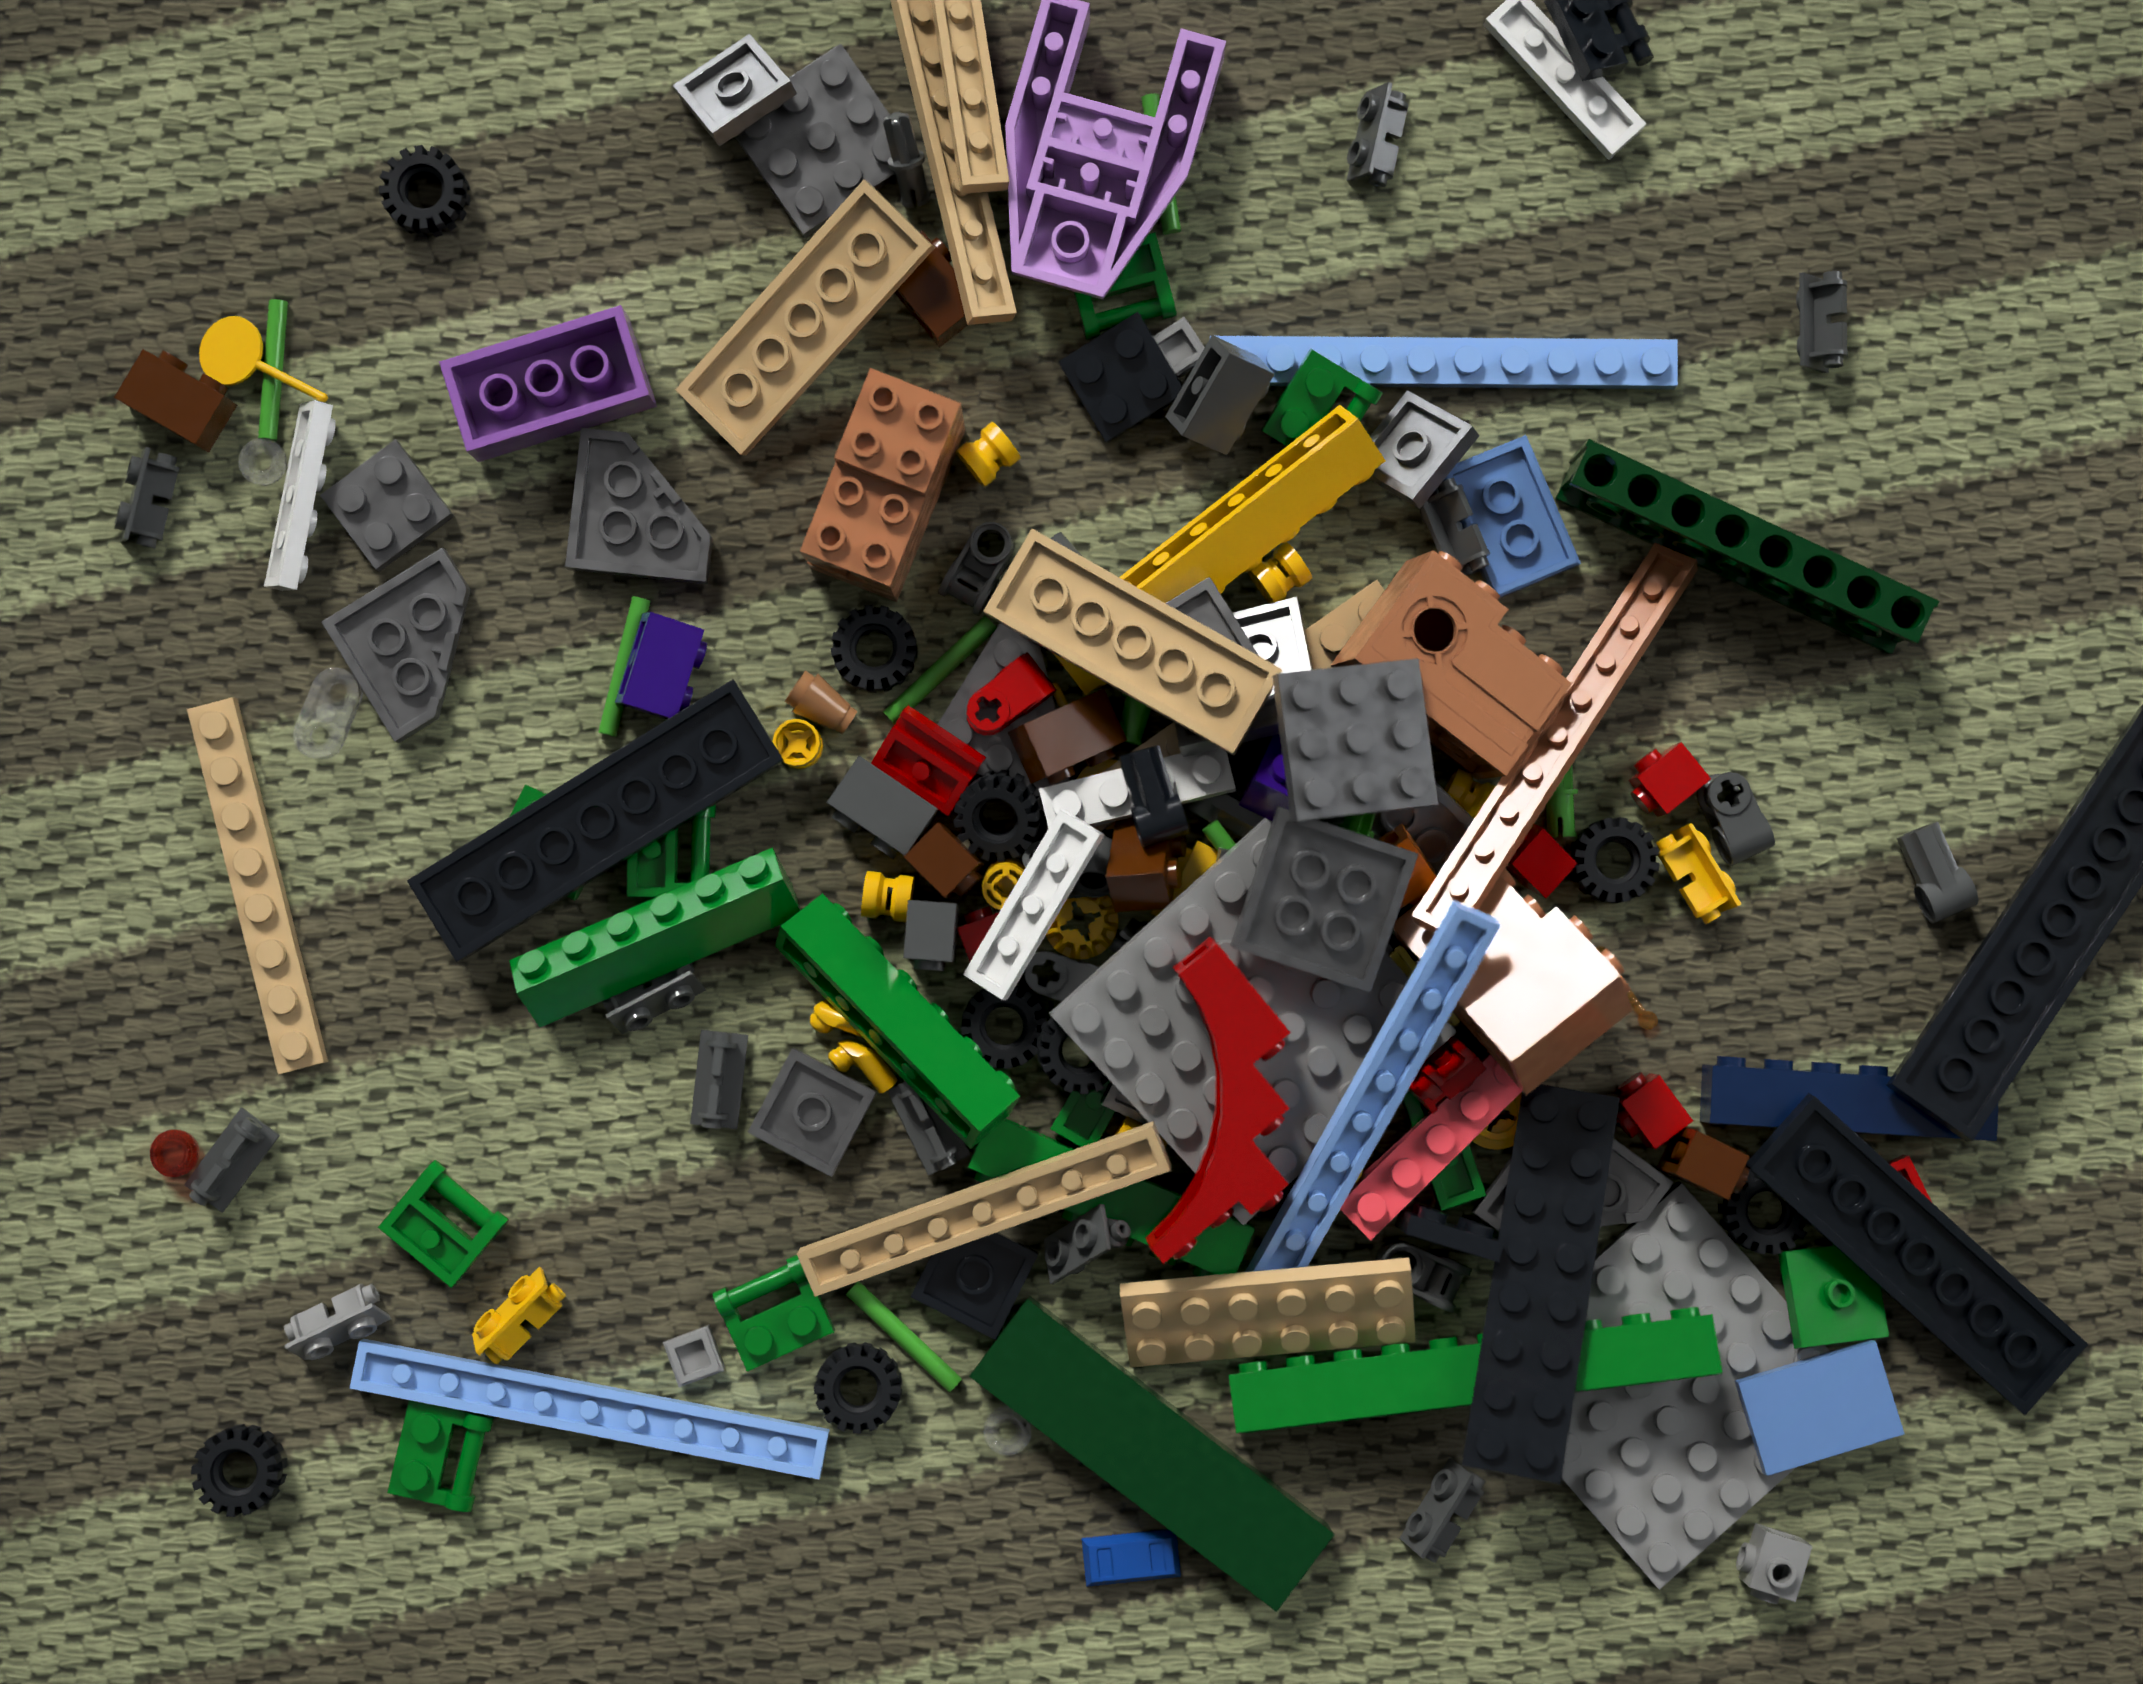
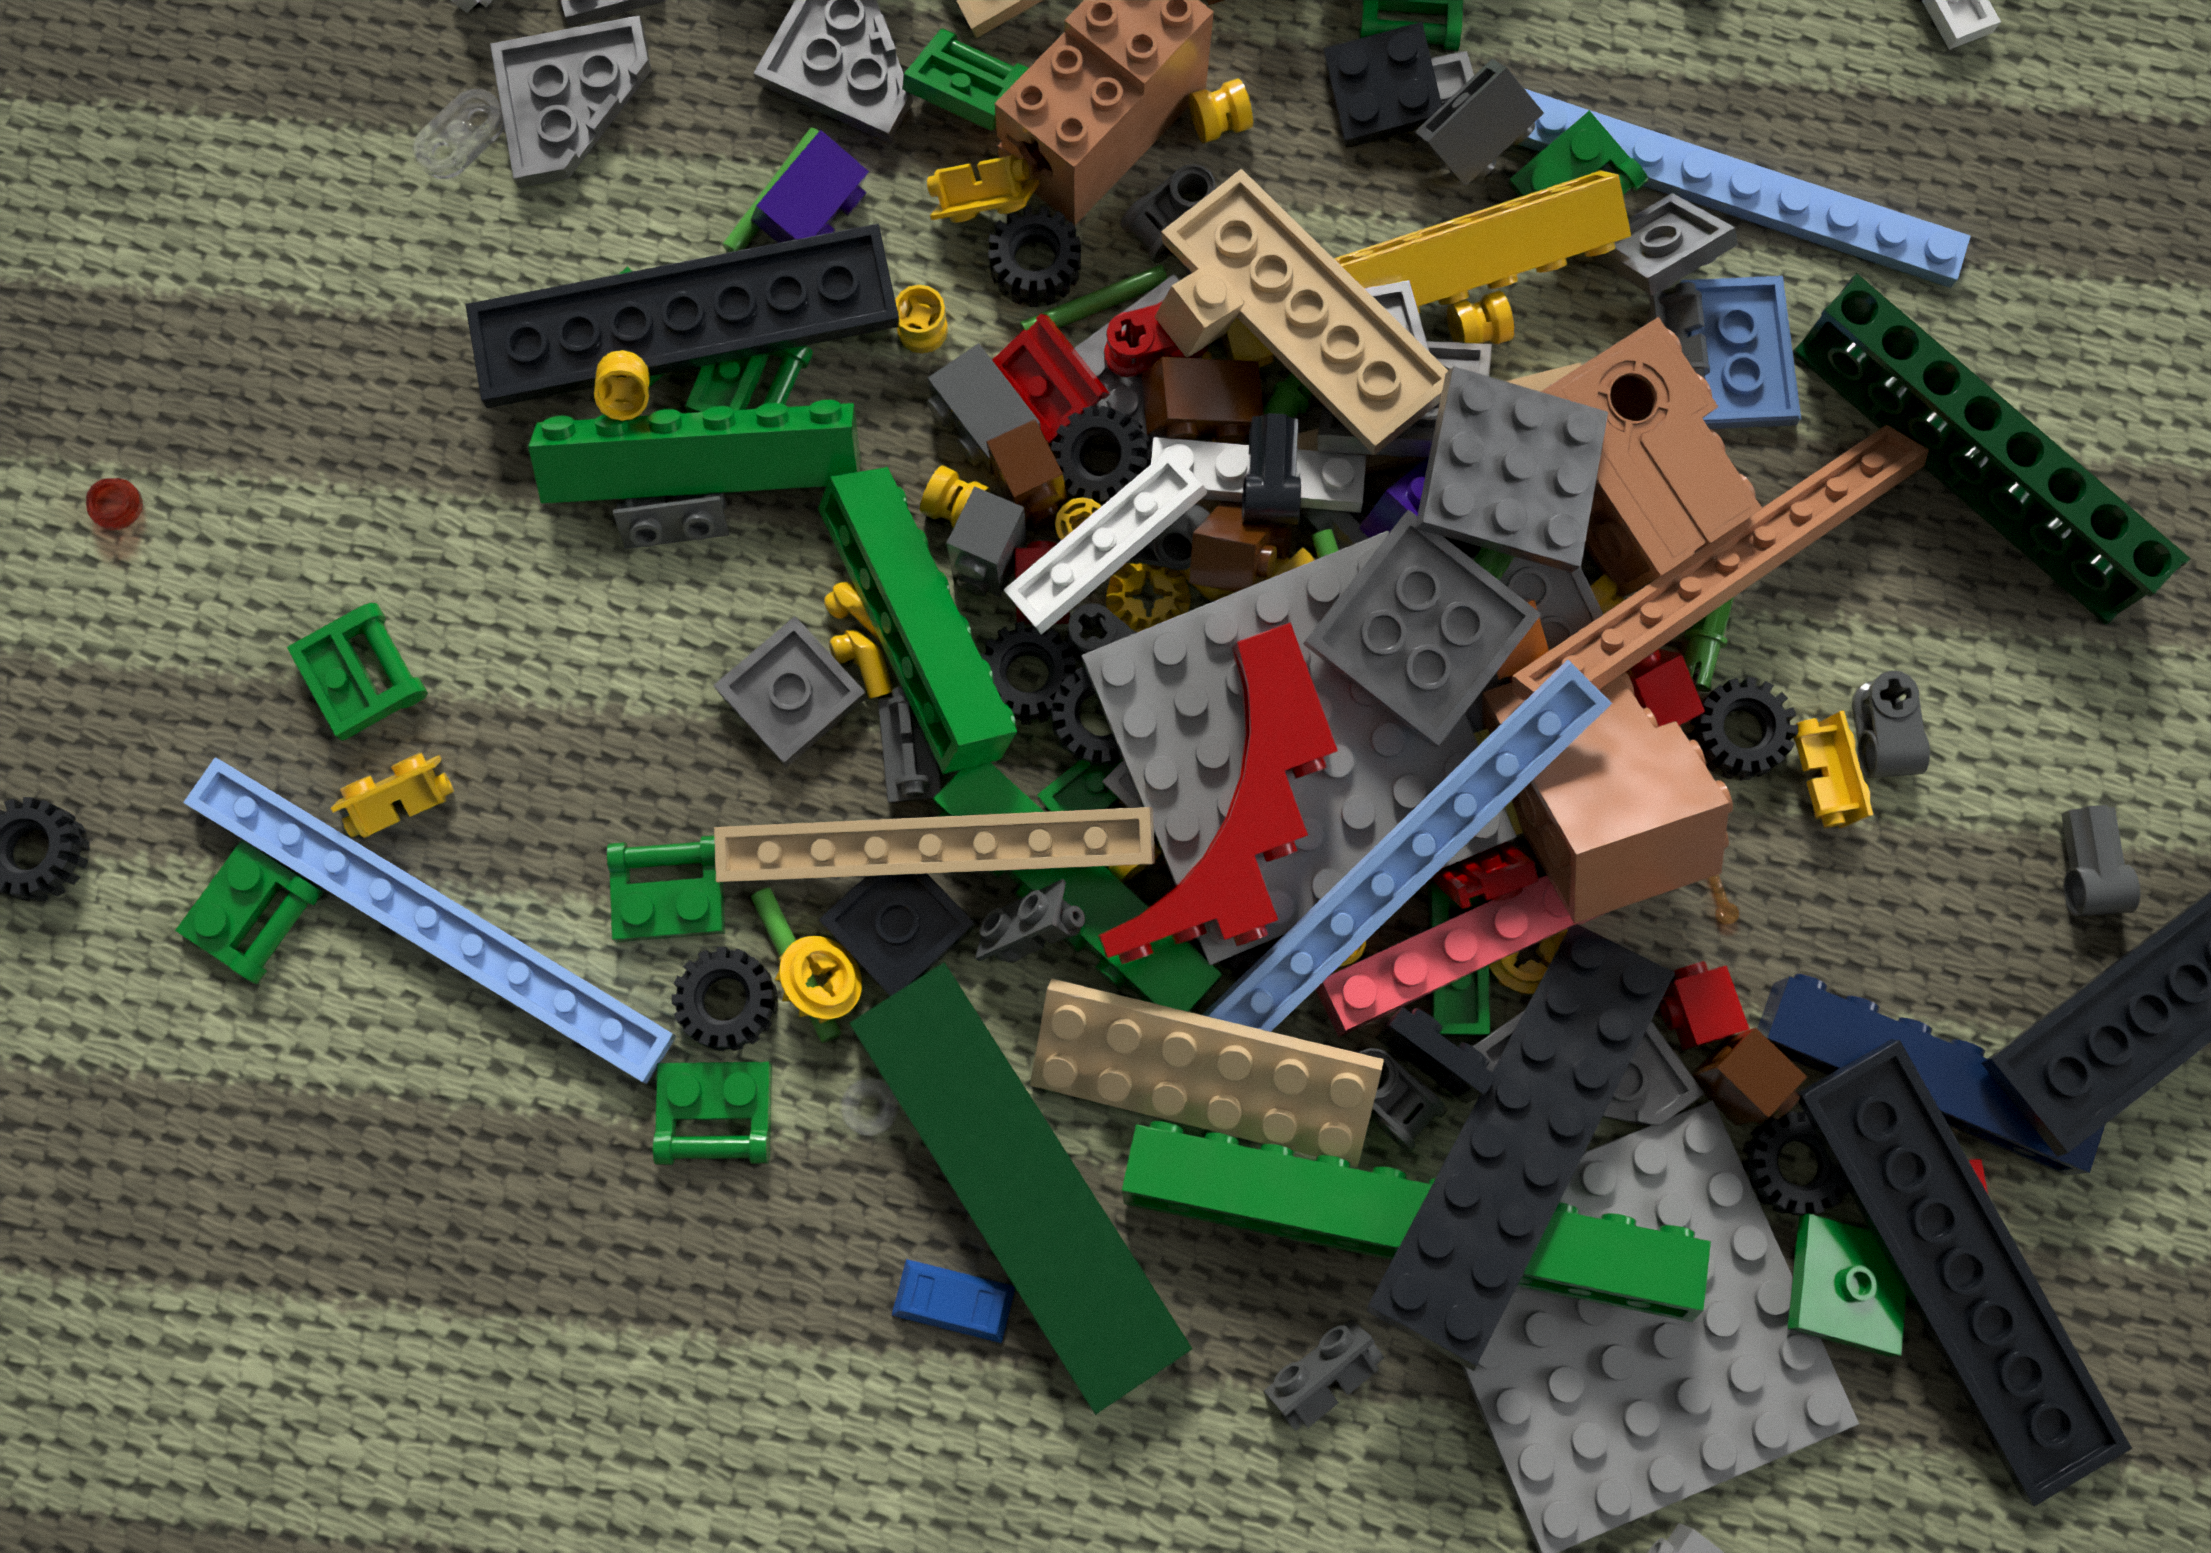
camera: 20 degrees right, 10 degrees down
(231, 1161) = (168, 532): dark grey hinge -> none
(257, 885) = (316, 278): tan plate -> none
(316, 1333) = (180, 737): light grey hinge -> none
(573, 910) = (621, 396): none -> yellow wheel
(694, 1356) = (563, 904): light grey tile -> none
(719, 1079) = (706, 625): dark grey hinge -> none
(754, 516) = (960, 78): none -> green plate
(820, 703) = (959, 288): medium nougat cone -> none
(824, 606) = (1001, 188): none -> yellow hinge
(879, 1464) = (713, 1093): none -> green plate
(949, 1345) = (819, 956): none -> yellow gear
(1041, 674) = (1199, 309): none -> tan brick
(1666, 779) = (1828, 663): red brick -> none
(1819, 1407) = (1797, 1407): medium blue tile -> none
(1821, 342) = (2124, 282): dark grey hinge -> none

